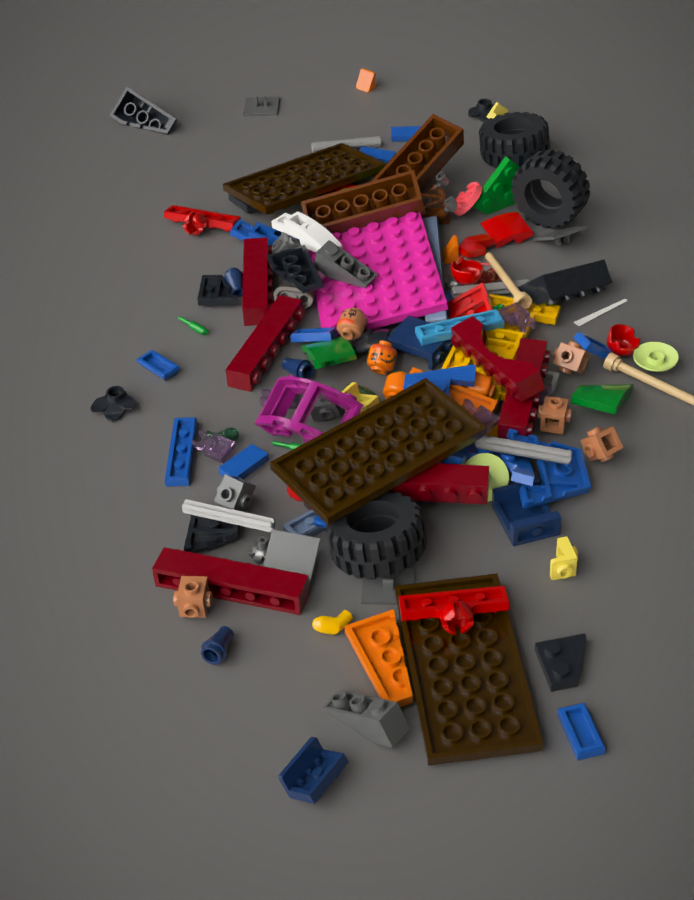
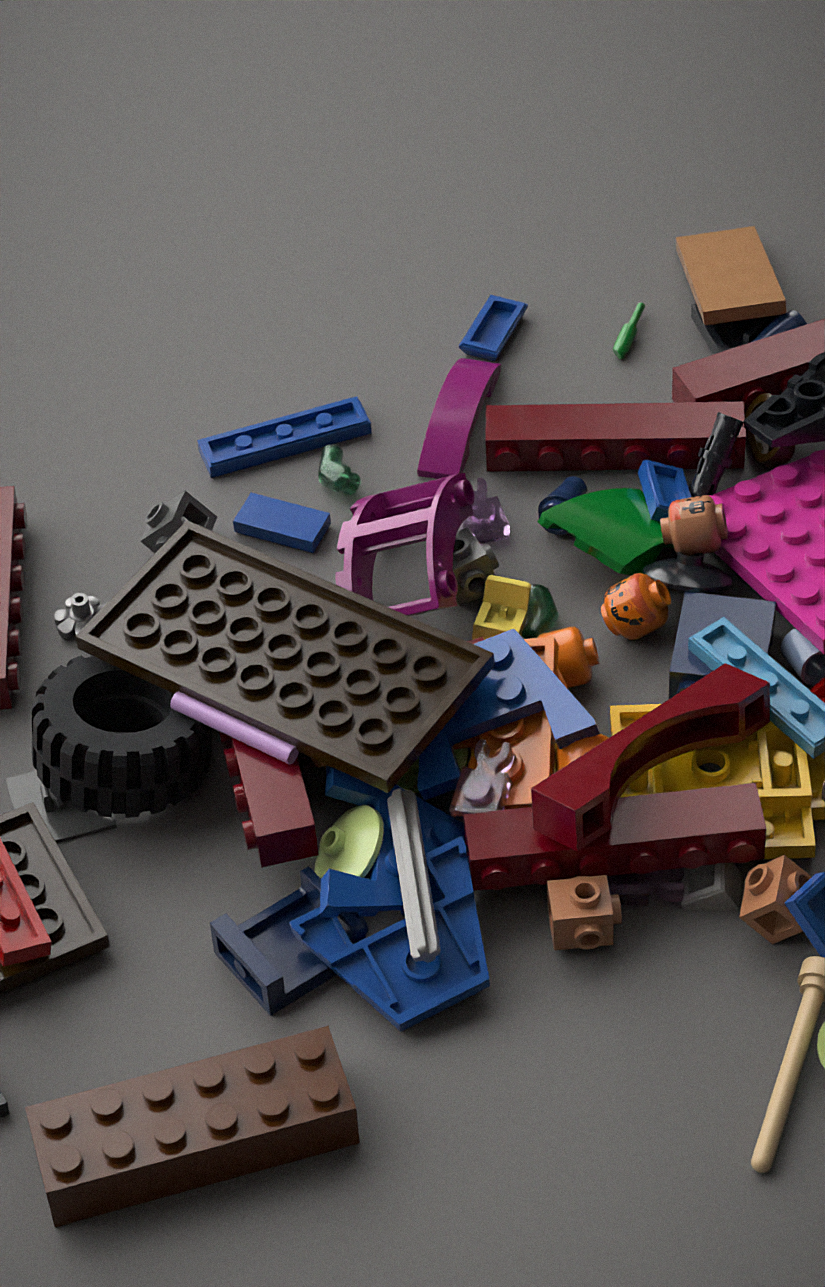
camera: 70 degrees right, 5 degrees up
(113, 403) = (366, 312): black plate -> none
(188, 282) = (730, 275): none -> medium nougat tile
(208, 533) = (93, 536): black wing -> none
(215, 385) = (455, 417): none -> magenta slope
(216, 447) = (299, 472): clear purple plate -> none
(228, 515) = (117, 534): axle -> none
(292, 552) = (50, 646): piece -> none
(300, 299) = (715, 455): none -> black pin
(416, 478) = (234, 727): none -> lavender bar
(566, 561) = (182, 1030): light yellow bracket -> none
(601, 443) = (519, 1007): nougat brick -> none
(602, 397) = (685, 976): green slope -> none
(628, 567) = (192, 1125): none -> reddish brown brick

